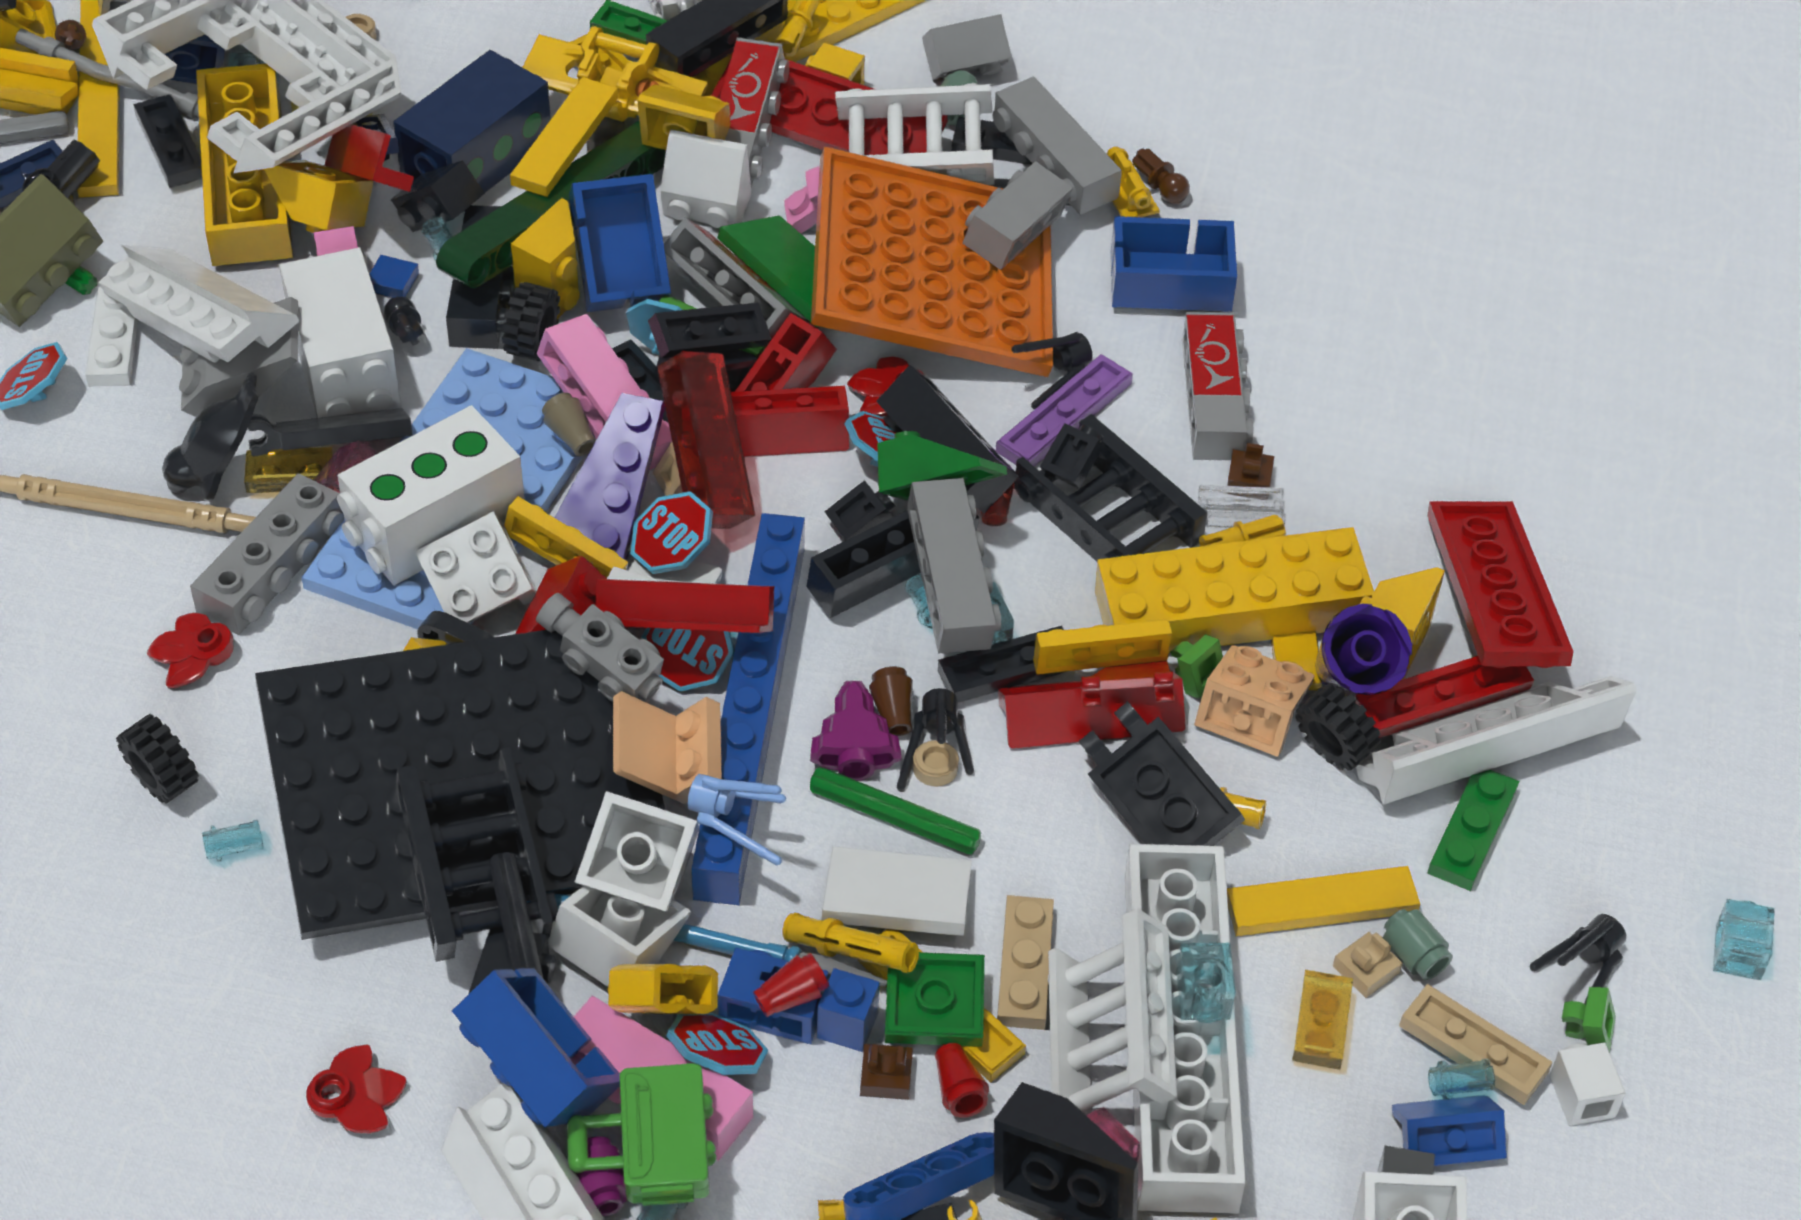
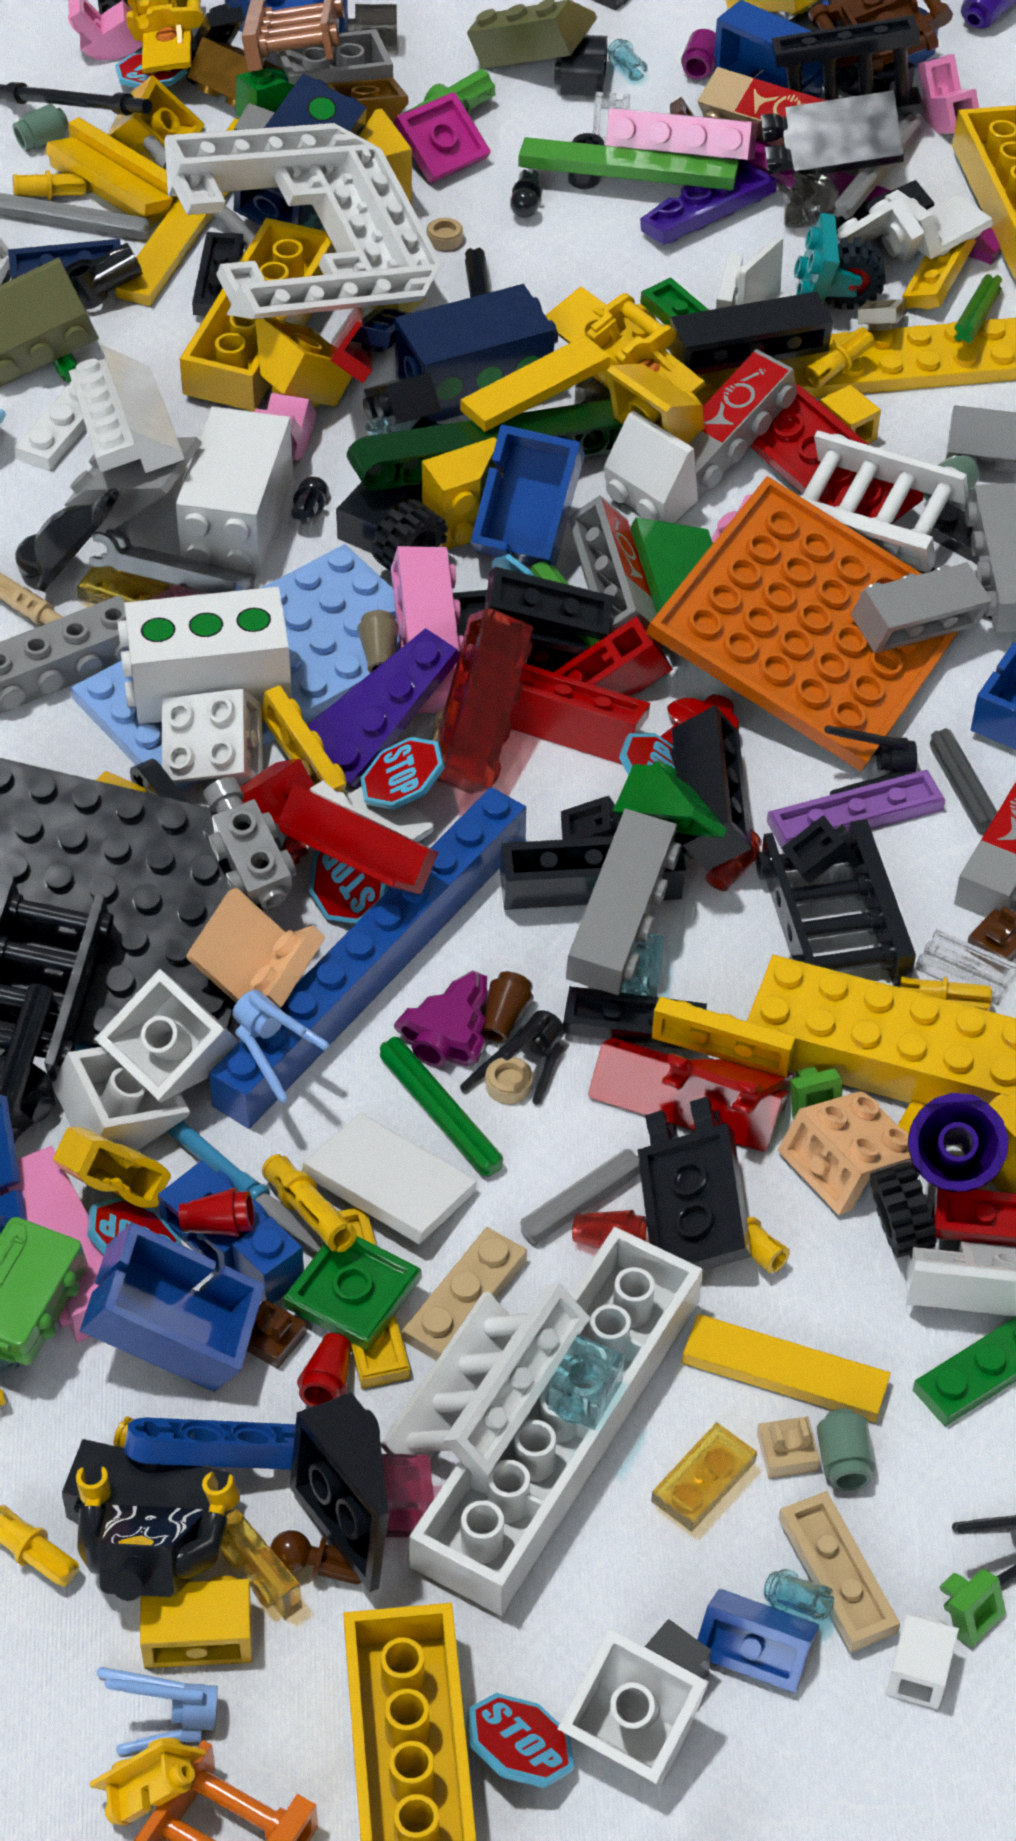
camera: 30 degrees right, 0 degrees up
(393, 276) = (325, 459): blue tile -> none
(418, 61) = (477, 272): none -> black axle
(829, 1099) = (156, 1315): none -> blue piece
(1064, 834) = (580, 1196): none -> light grey axle
(1107, 852) = (594, 1228): none -> clear red cone
(1135, 350) = (963, 778): none -> dark grey axle

